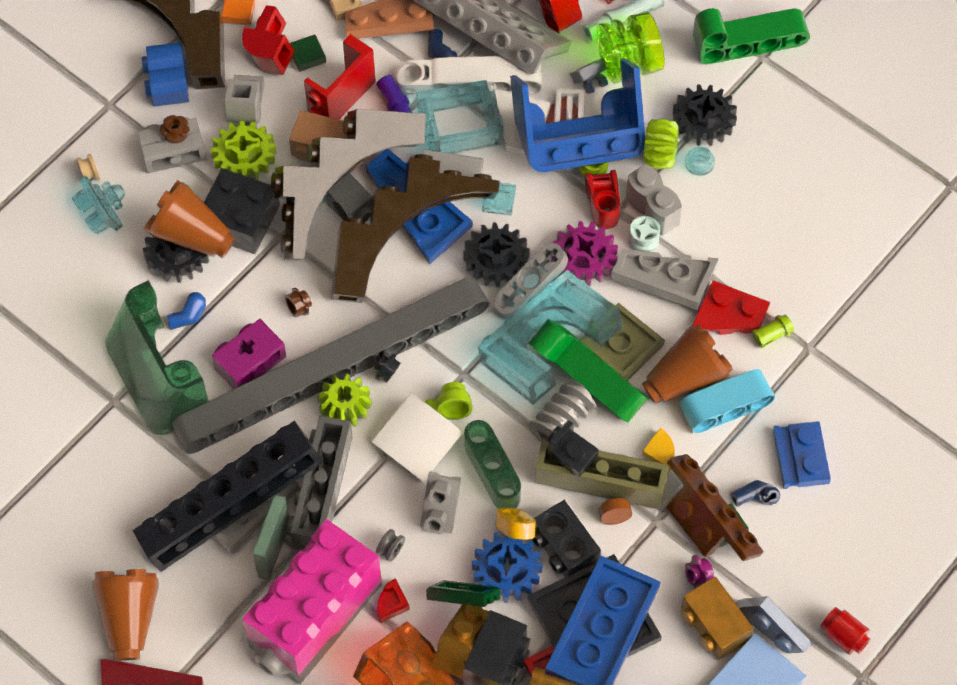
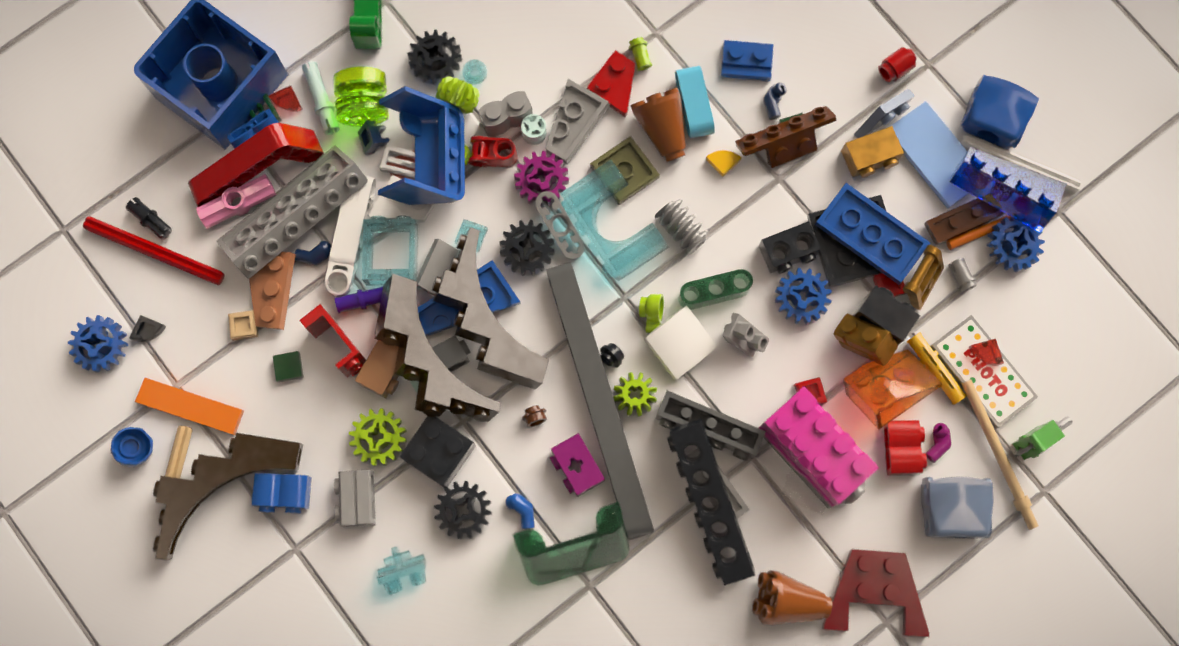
camera: 80 degrees left, 15 degrees up
(88, 167) = (362, 576): tan bush -> none
(178, 134) = (357, 491): reddish brown plate -> none
(189, 223) = (455, 492): dark orange cone -> none
(244, 98) = (326, 426): light grey brick -> none
(266, 42) = (275, 402): red brick -> none
(271, 537) = (752, 472): sand green tile -> none
(390, 545) = (768, 381): dark grey bush -> none
(463, 593) = (825, 332): dark green tile -> none
(515, 523) = (773, 280): yellow beam -> none
(571, 449) = (730, 221): black bracket -> none
(589, 369) = (649, 197): green beam -> none
(608, 477) = (742, 207): olive brick -> none
(615, 511) = (771, 205): dark orange tile -> none
(698, 571) = (833, 156): magenta plate -> none

